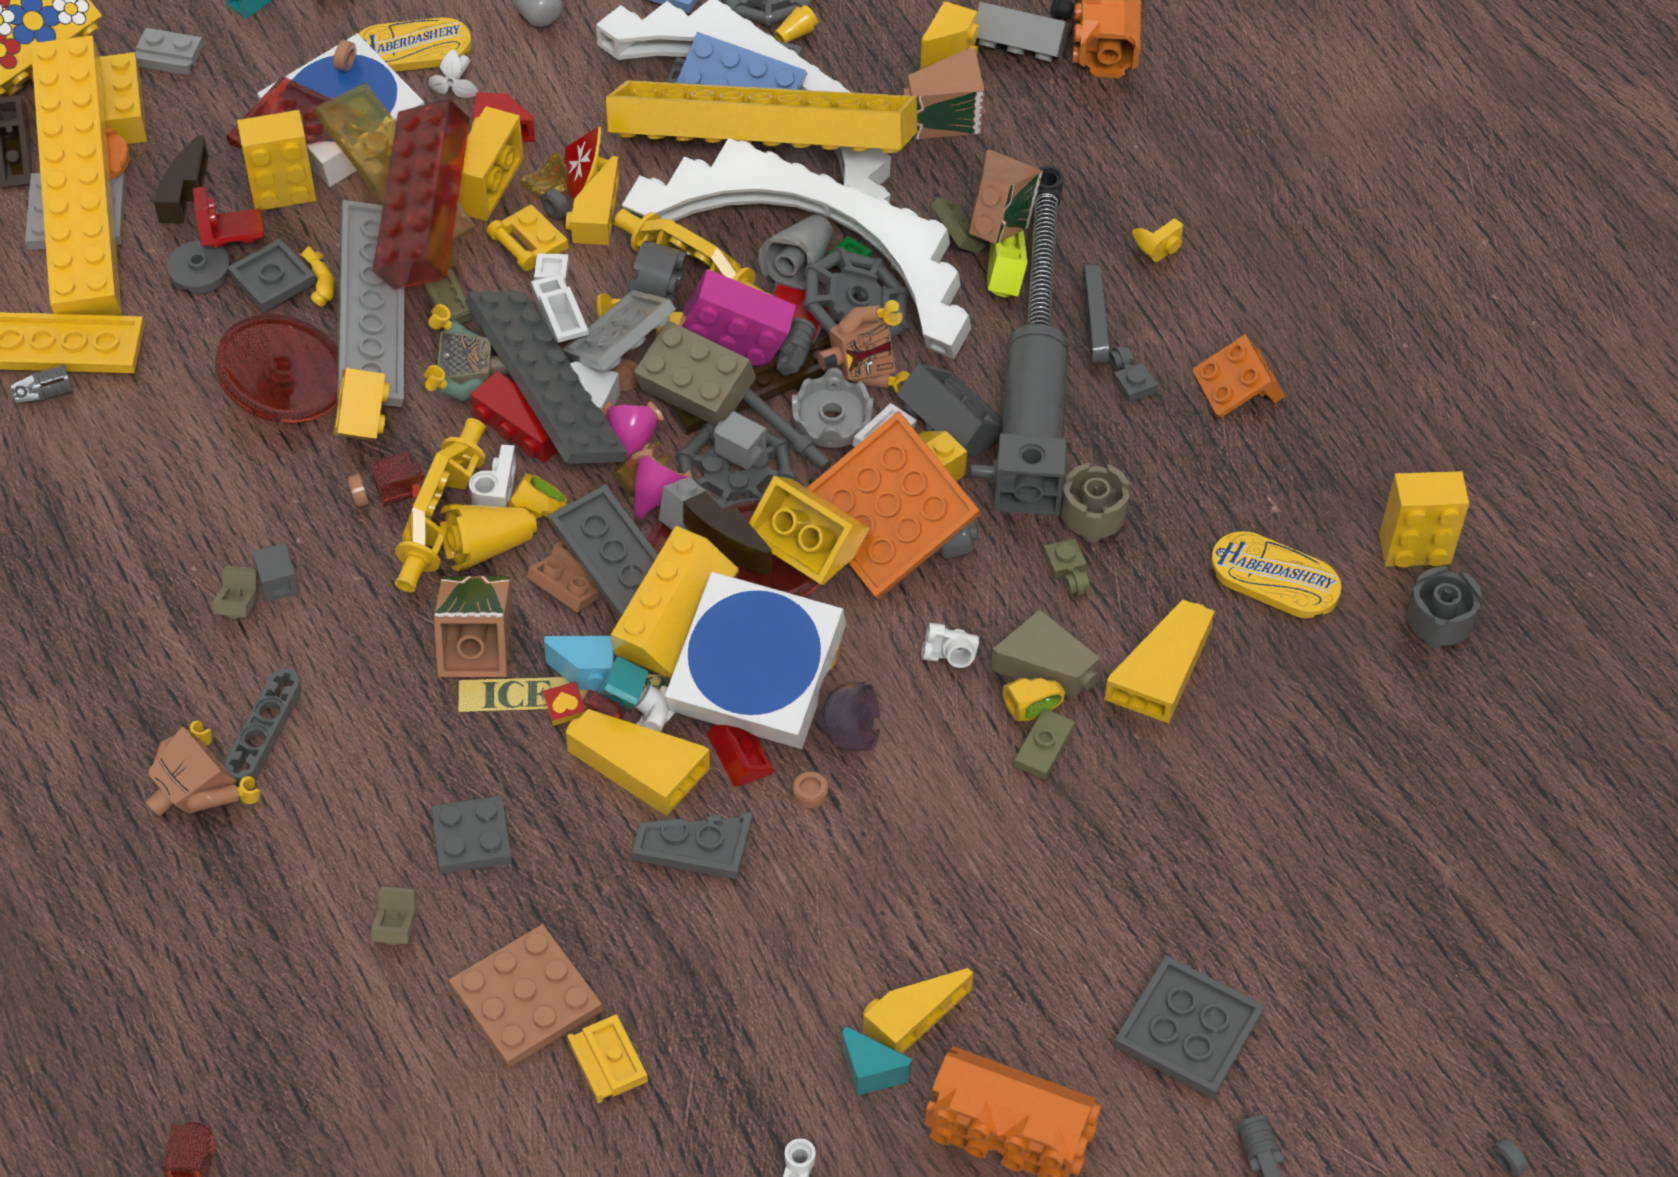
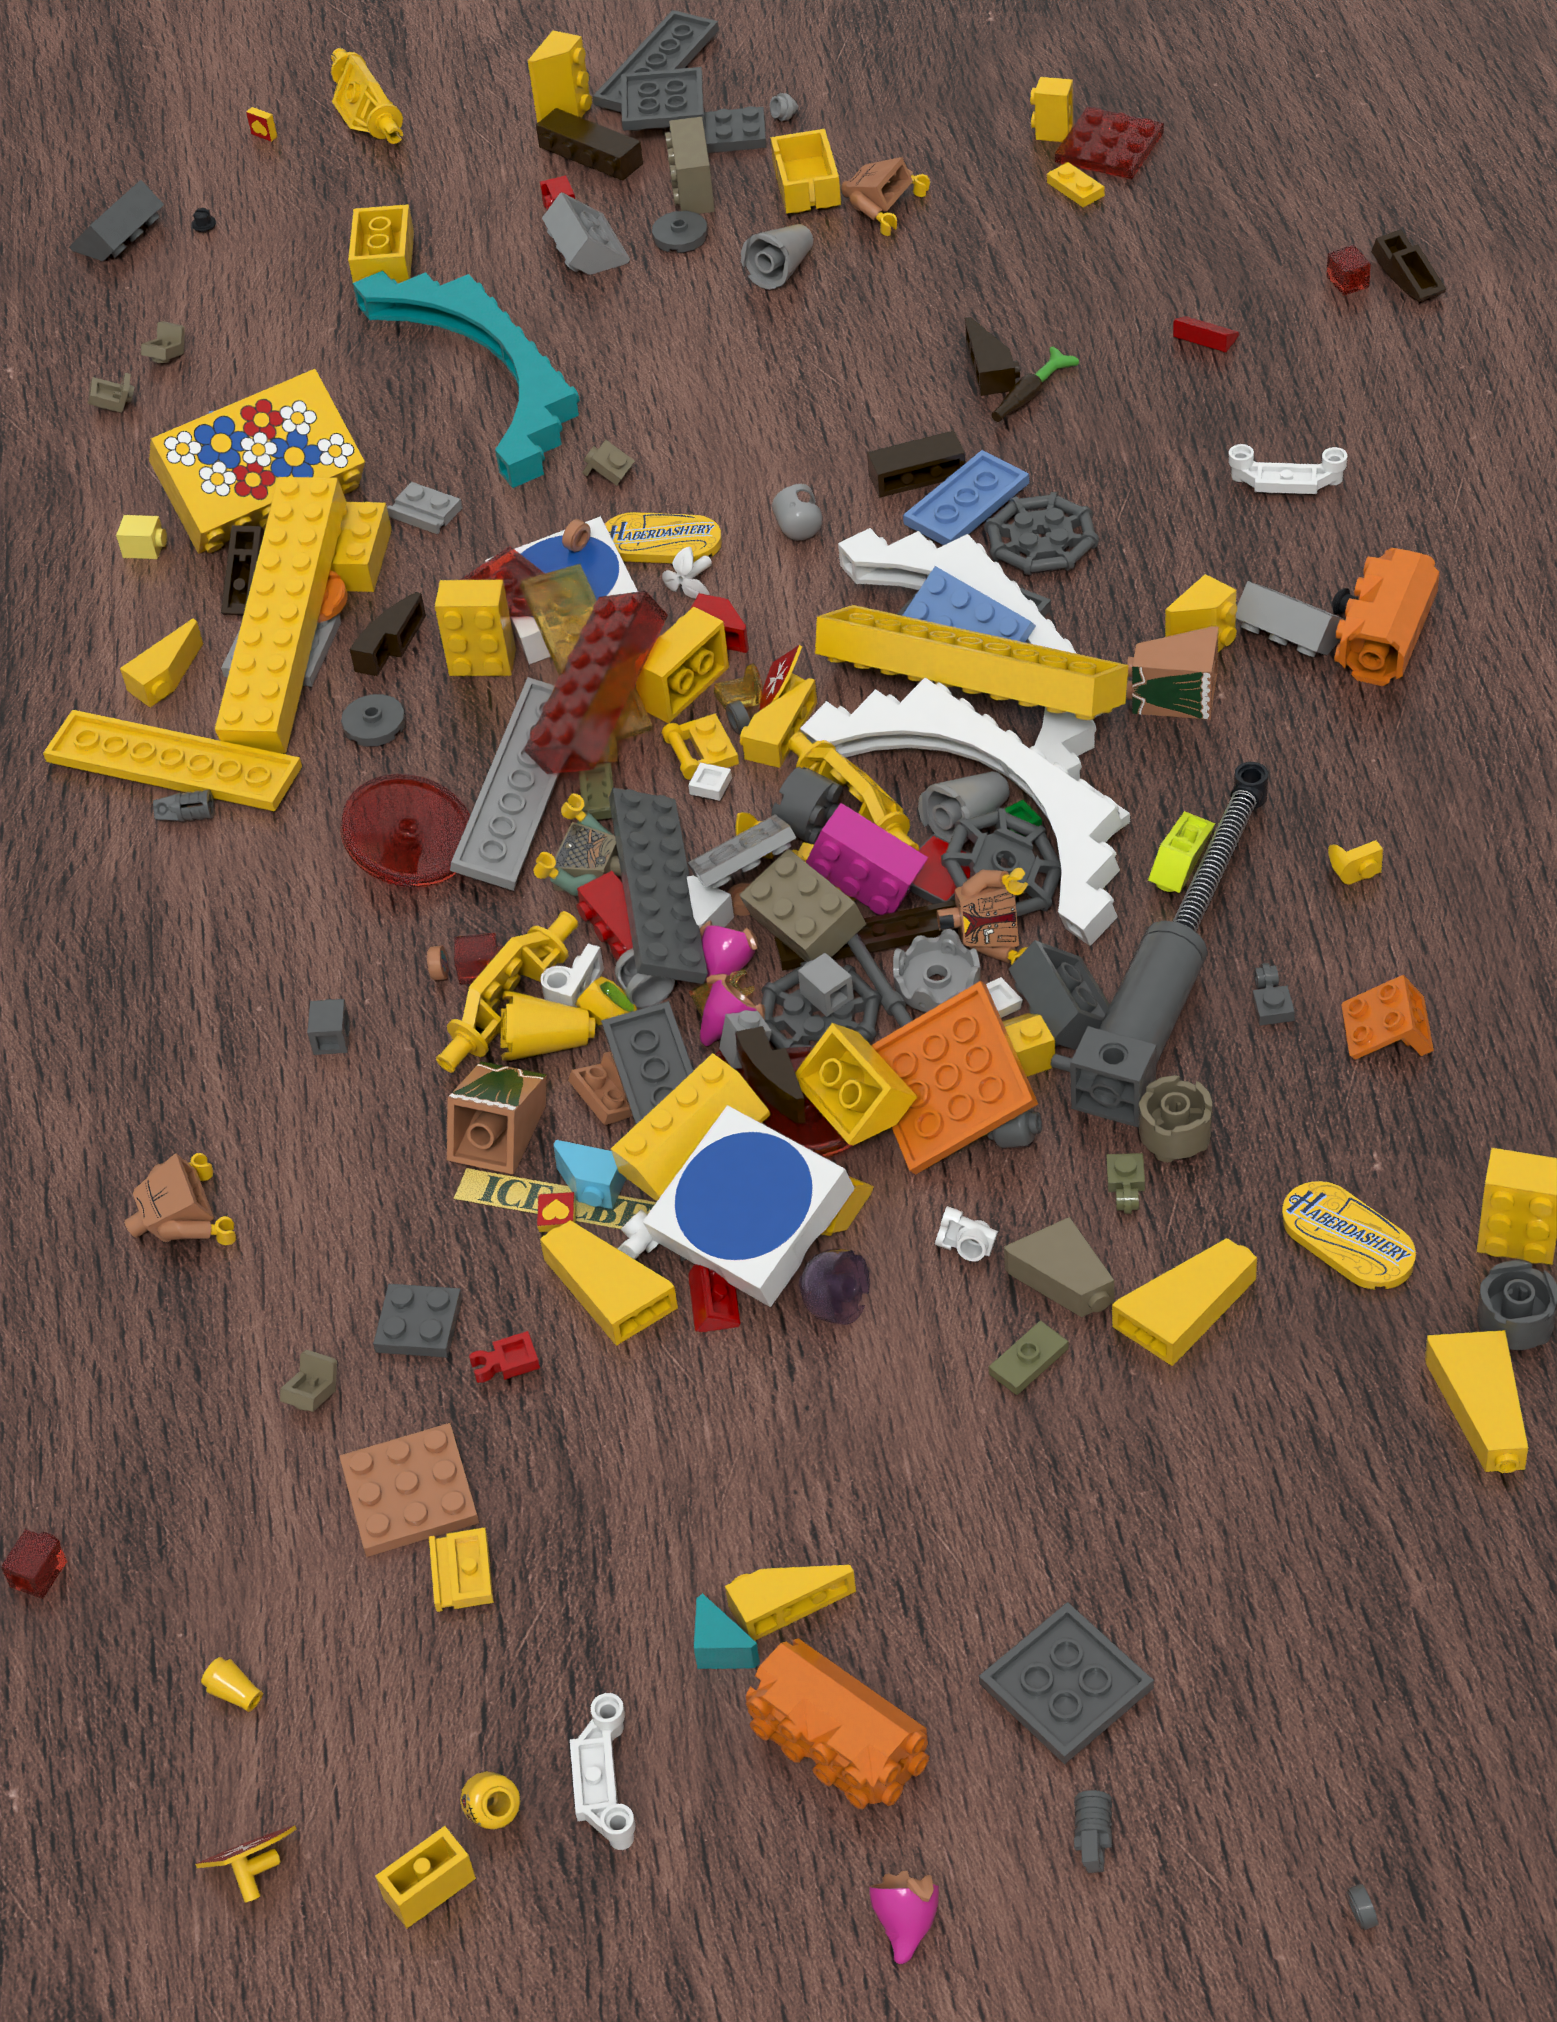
camera: 25 degrees right, 5 degrees down
(225, 227) = (399, 686): red bracket -> none
(238, 592) = (287, 1039): dark tan bracket -> none
(264, 727) = (266, 1176): dark grey beam -> none
(271, 275) = (437, 739): dark grey plate -> none
(325, 280) = (483, 759): yellow arm -> none
(360, 404) = (466, 879): yellow brick -> none
(558, 308) = (698, 819): white slope -> none
(561, 476) = (640, 988): none -> light grey helmet
(574, 848) = (510, 1356): none -> red plate
(603, 705) = (590, 1222): clear red plate -> none
(624, 683) = (612, 1202): teal slope -> none
(701, 846) = (631, 1381): dark grey wing -> none
(796, 346) = (920, 899): dark grey hinge -> none
(797, 24) = (1054, 577): yellow cone -> none
(810, 789) = (768, 1350): nougat tile -> none
(957, 225) = (1143, 808): olive plate -> none
(1004, 197) = (1193, 787): nougat slope -> none
(1029, 696) = (1029, 1305): yellow rock -> none
(1095, 313) = (1255, 925): dark grey beam -> none
(1442, 691) = (1482, 1393): none -> yellow slope

